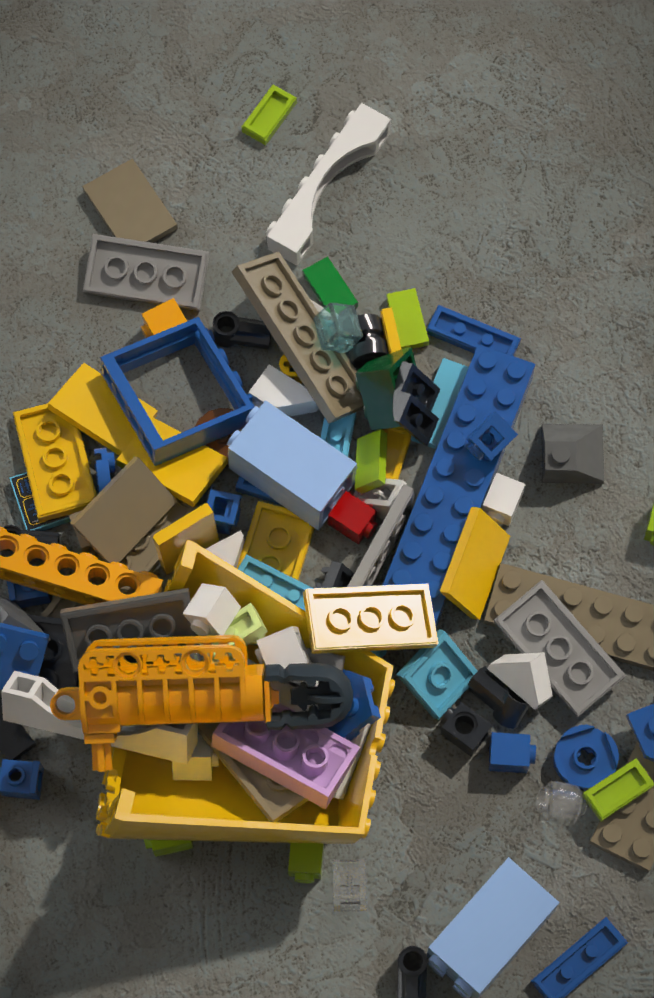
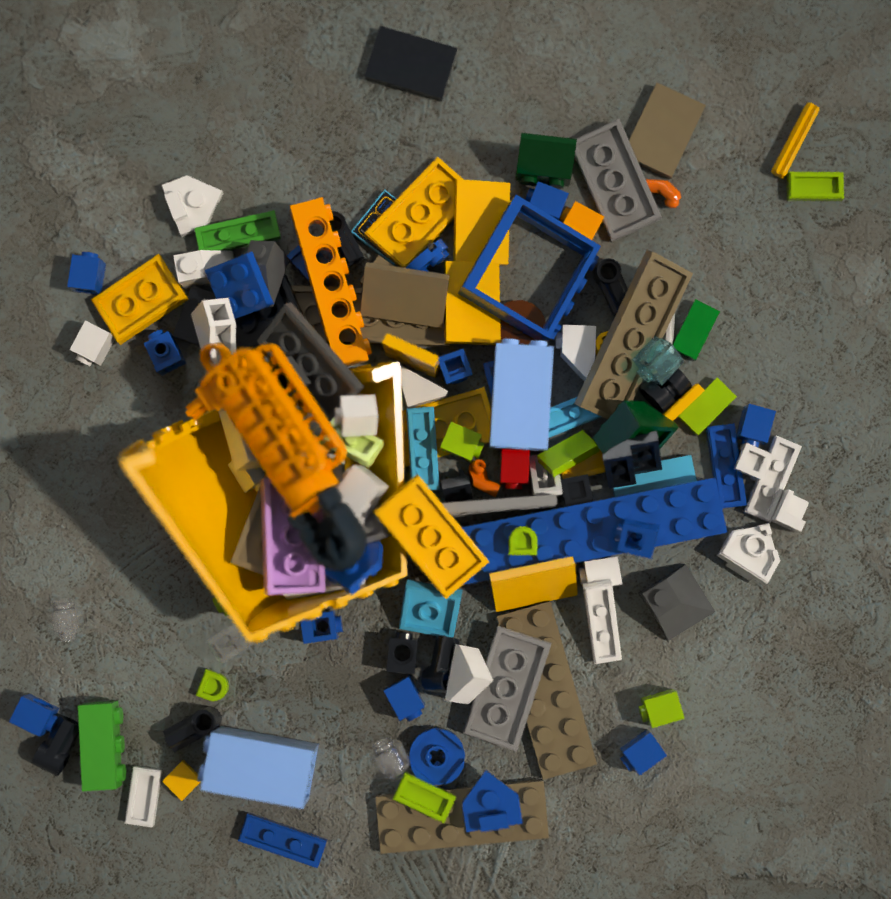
camera: 60 degrees right, 15 degrees up
(85, 317) = (545, 160): none -> dark green slope
(122, 335) = (548, 199): none -> blue brick
(185, 235) = (667, 190): none -> orange arm
(216, 106) = (795, 140): none -> yellow axle
(297, 547) = (462, 442): none -> lime brick
(348, 557) = (480, 480): none -> orange arm
(359, 139) = (838, 271): white arch -> none
(381, 937) = (212, 686): none -> lime tile
(390, 777) = (312, 633): none -> blue brick
(412, 472) = (576, 490): none -> black tile
(429, 543) = (522, 542): none -> lime tile
(452, 287) = (755, 425): none -> blue brick
(484, 306) = (752, 461): none -> white panel
(510, 304) = (768, 491): none -> white tile
(549, 525) = (602, 621): none -> white tile
(550, 307) = (790, 511): none -> white panel
(568, 360) = (751, 553): none -> white plate

